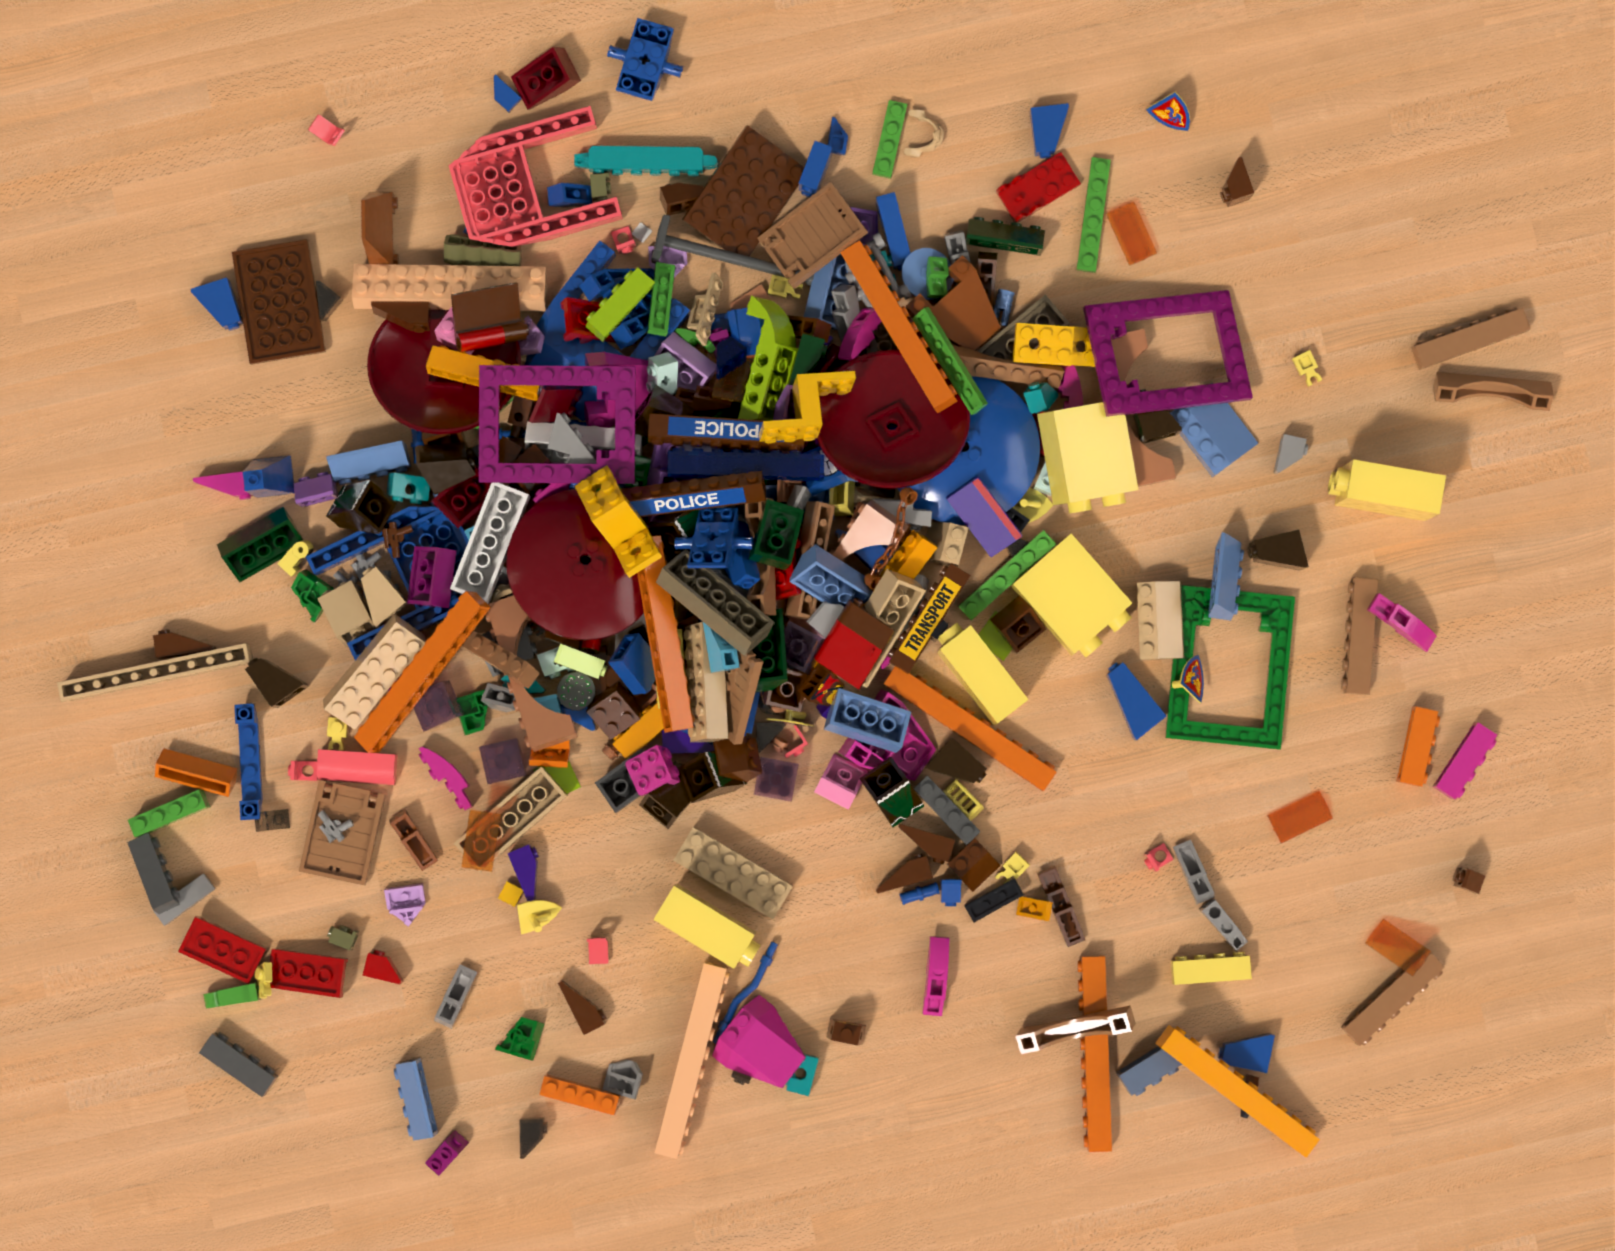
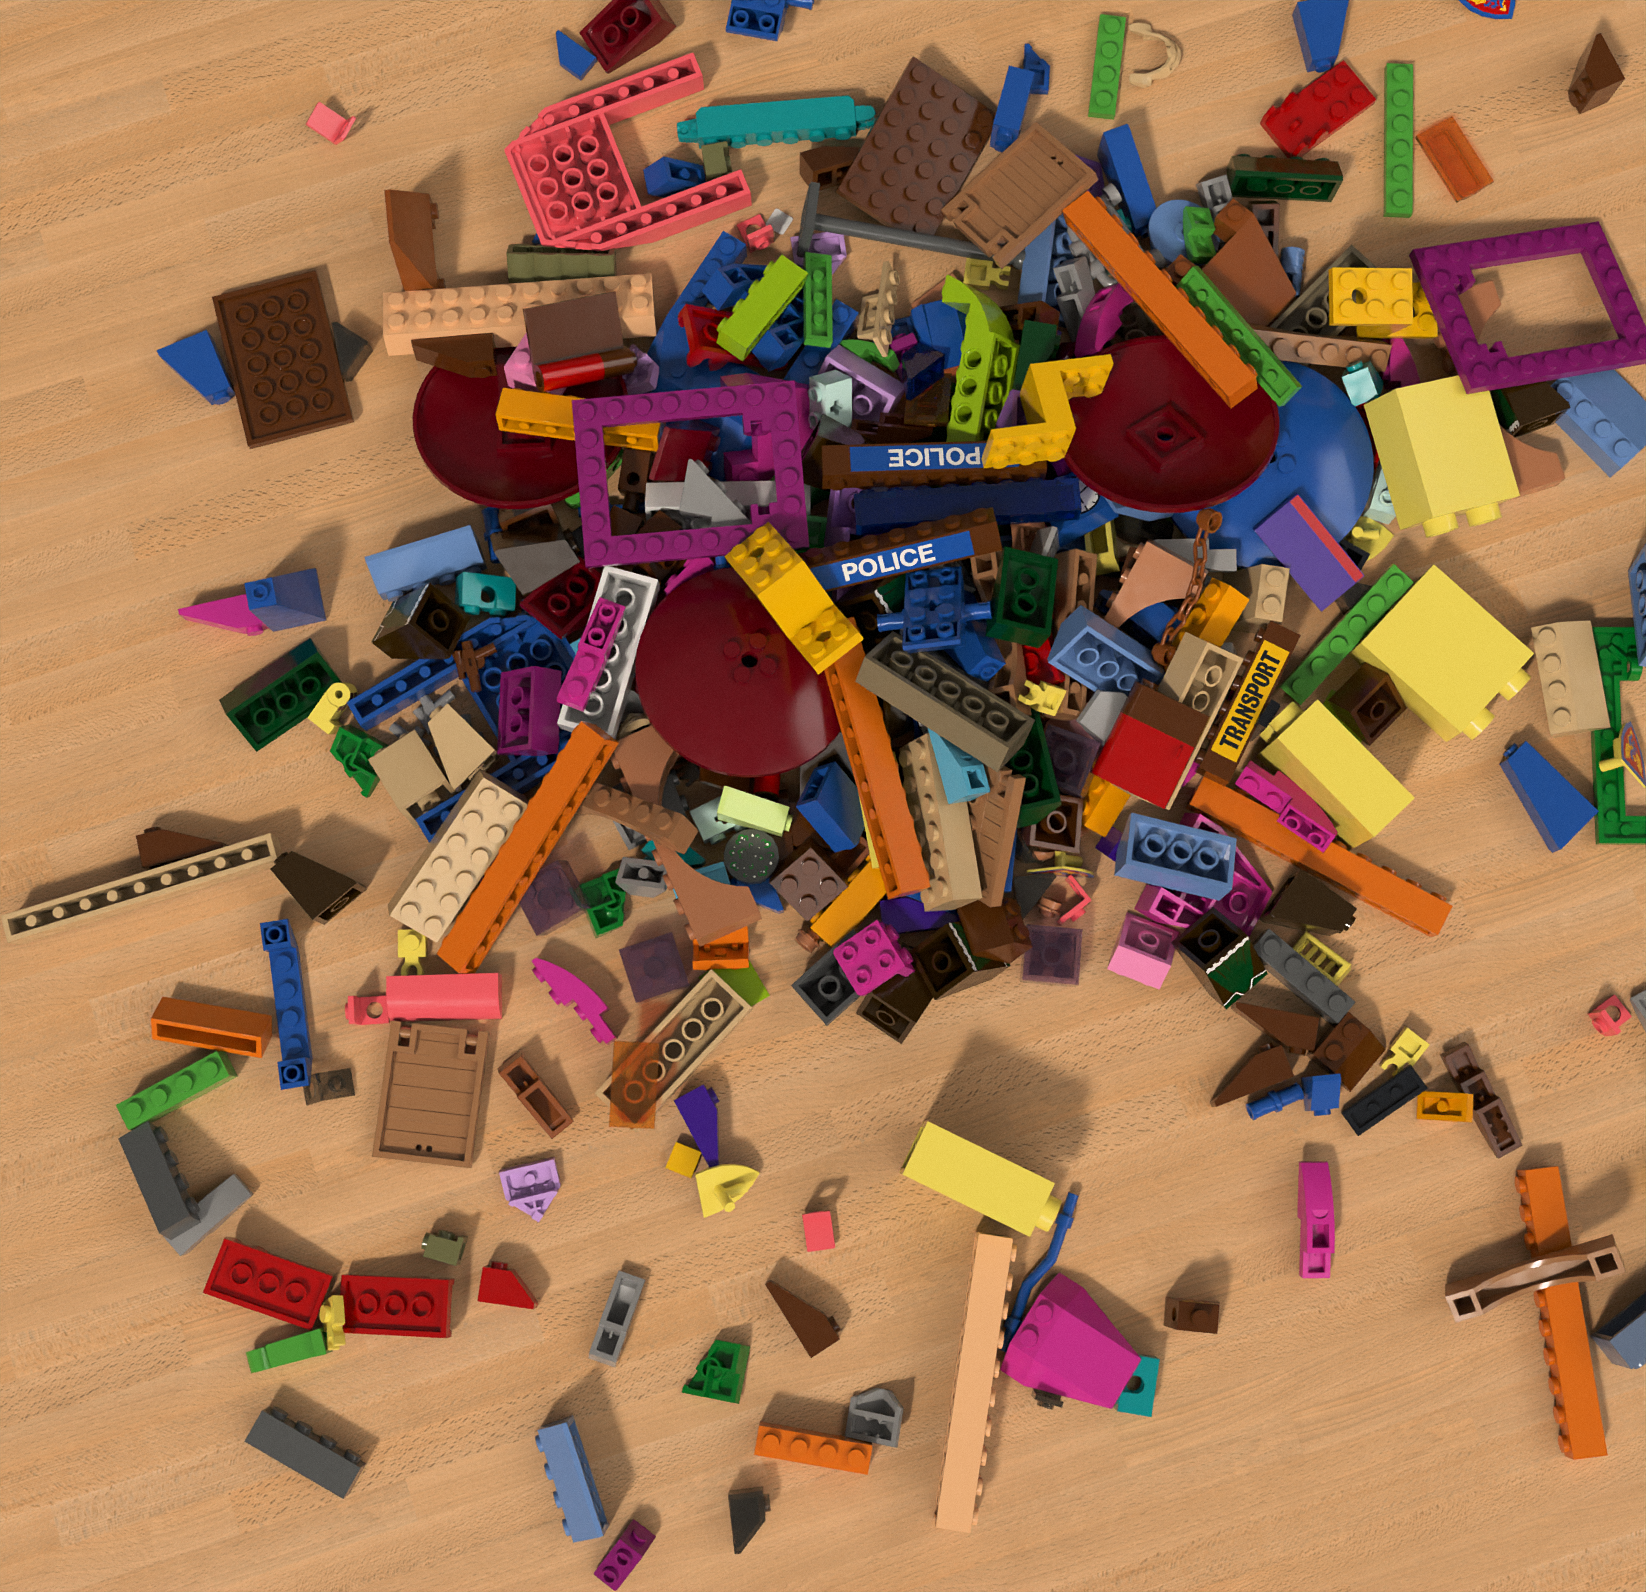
camera: 10 degrees left, 5 degrees down
(315, 490) = (354, 611): medium lavender slope -> none
(334, 828) = (419, 1088): light grey piece -> none
(477, 544) = (591, 654): none -> dark pink slope
(733, 873) = (1004, 1097): tan brick -> none
(785, 605) = (1043, 698): none -> light yellow plate
(821, 686) = (1105, 811): reddish brown torso -> none
(956, 694) = (1296, 807): none -> dark pink slope

